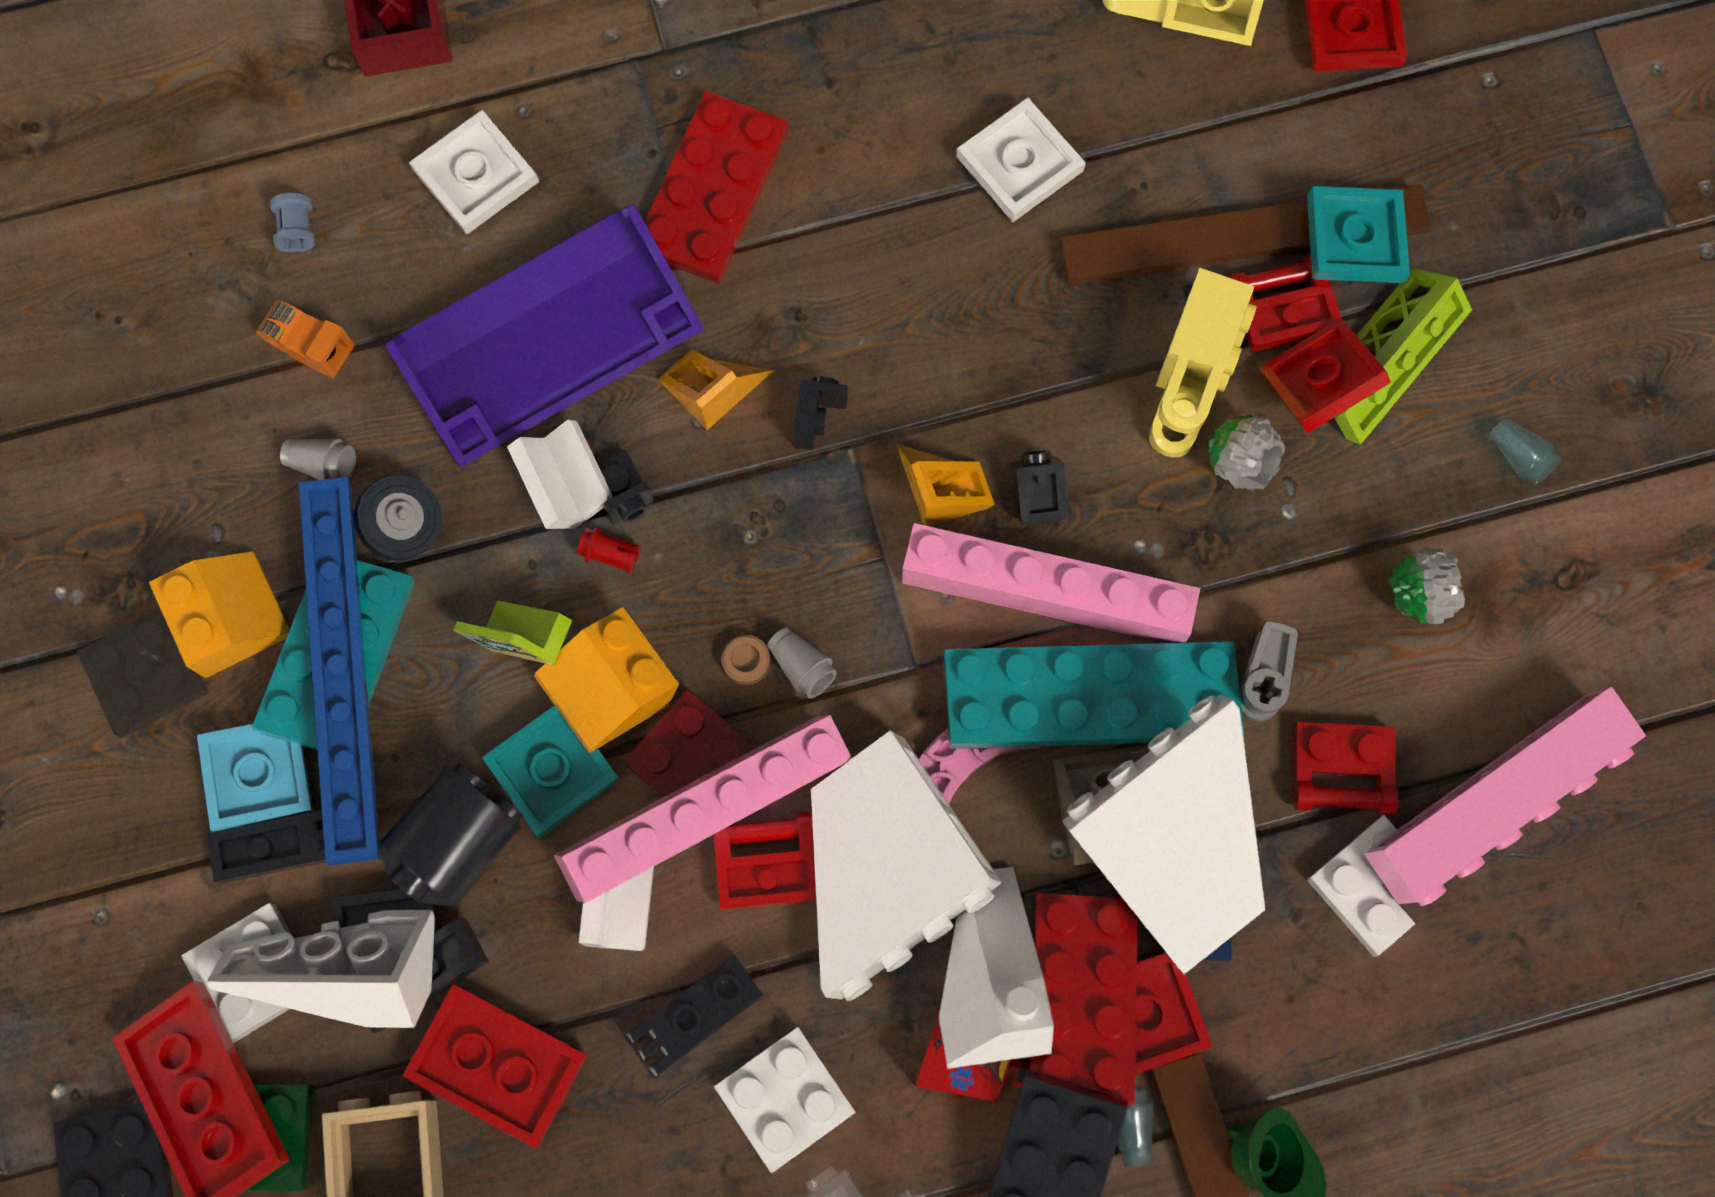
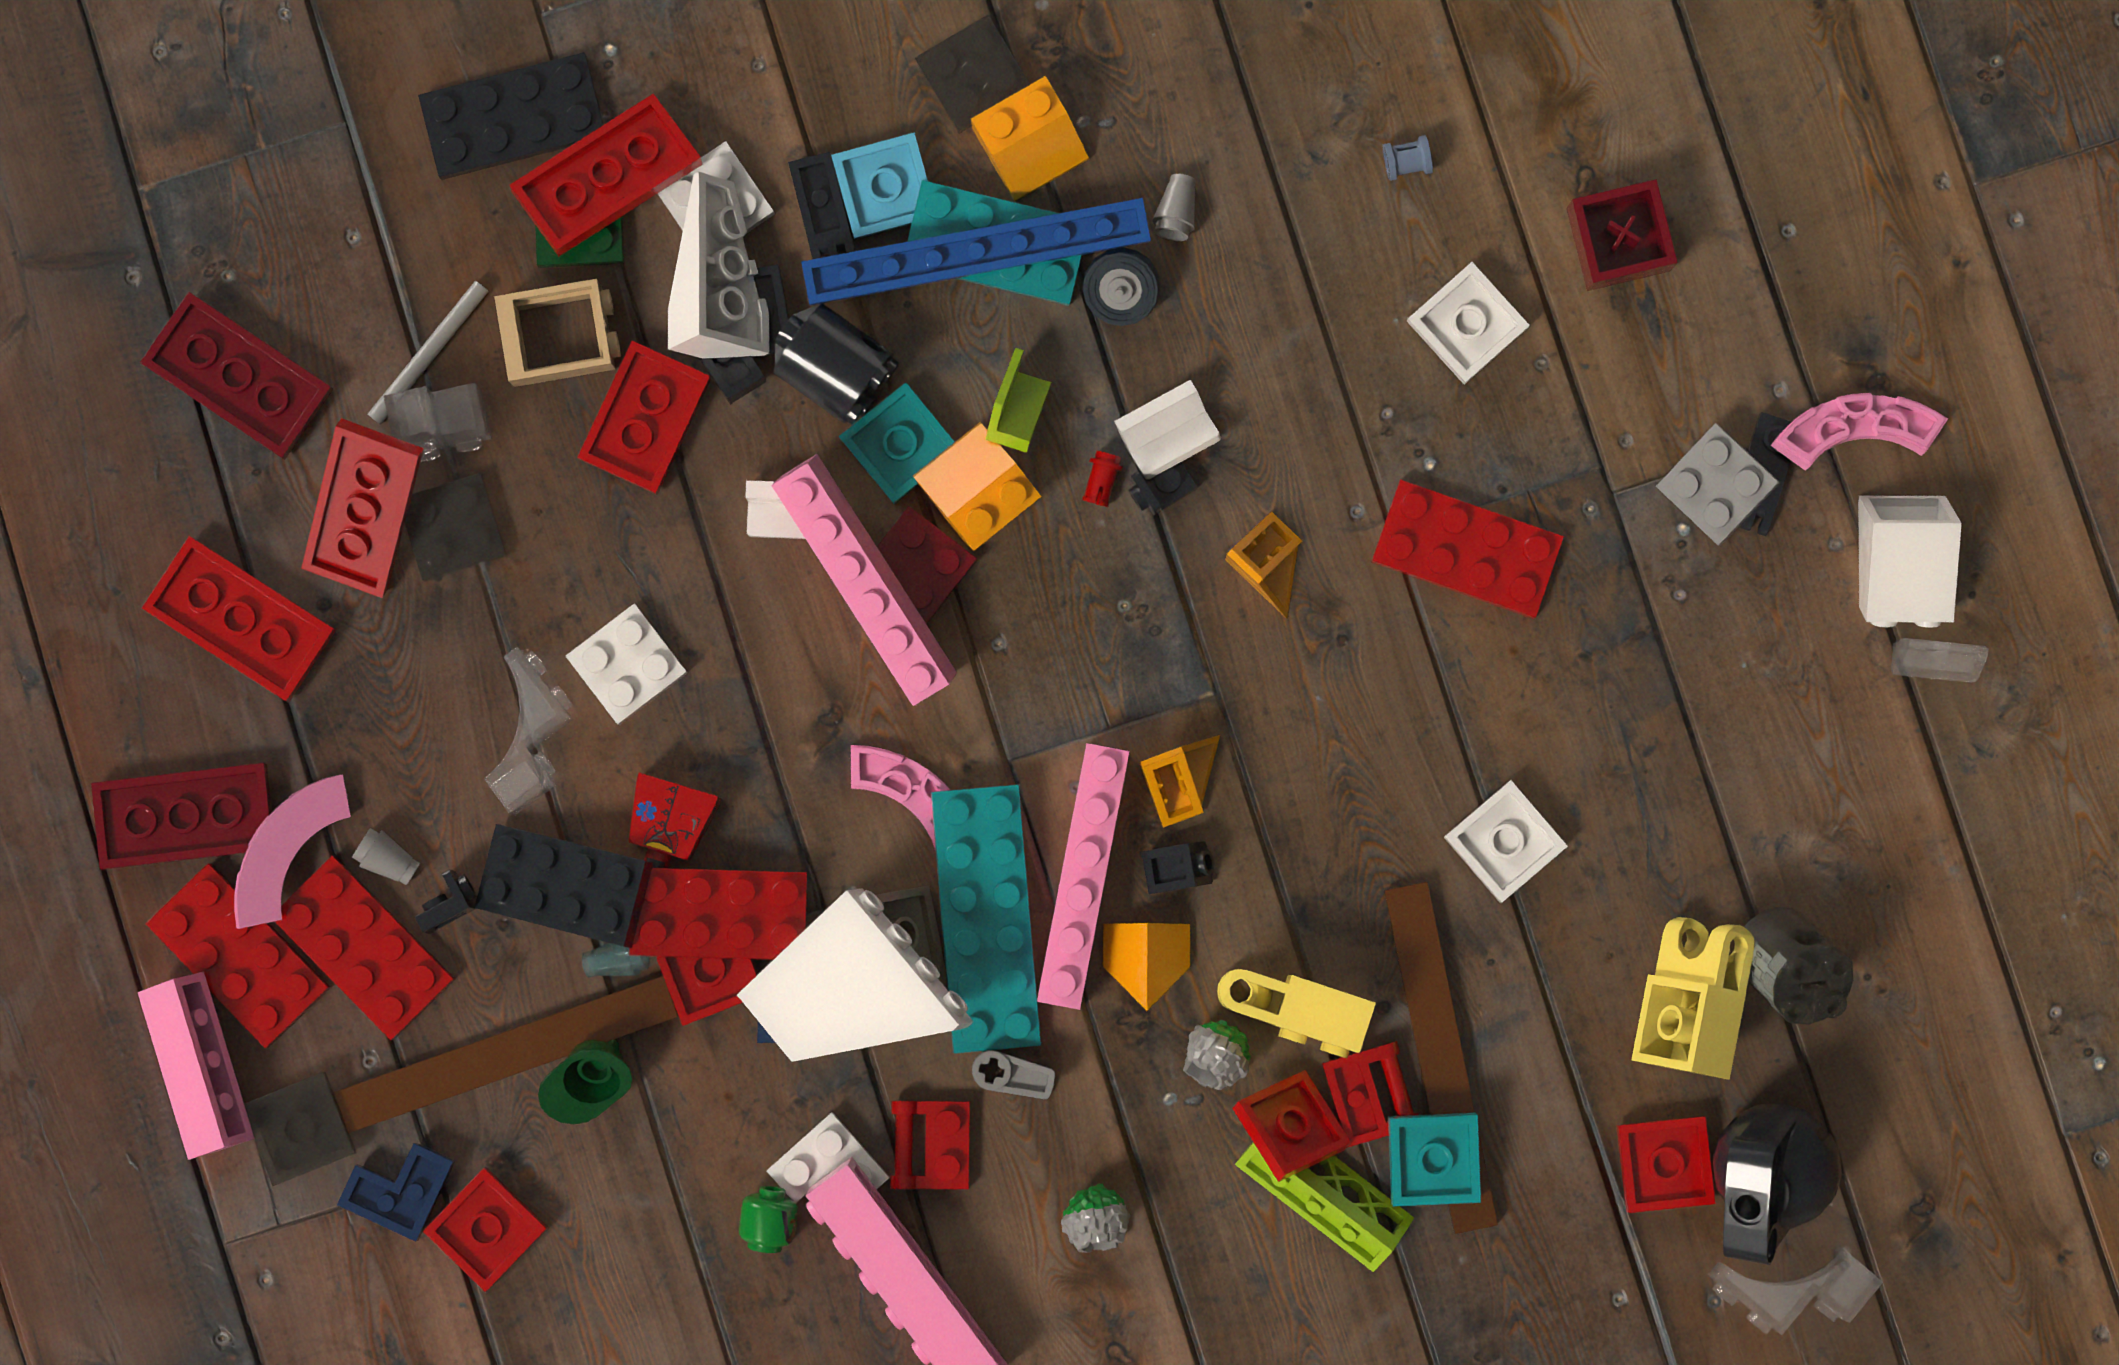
camera: 90 degrees right, 10 degrees up
(306, 338) = (1293, 182): orange leg -> none
(545, 335) = (1304, 404): dark purple slope -> none
(696, 1014) = (694, 585): black hinge -> none
(745, 660) = (1007, 608): medium nougat tile -> none
(766, 877) = (812, 640): red plate -> none
(802, 663) = (1004, 658): light grey cone -> none
(811, 413) = (1235, 654): black bracket -> none
(887, 865) = (825, 742): white slope -> none
(994, 984) = (724, 833): white wedge -> none
(1138, 525) = (1146, 957): none -> light orange slope
(1436, 955) = (768, 1220): none -> green head
(1525, 451) = (1232, 1316): clear light blue cone -> none

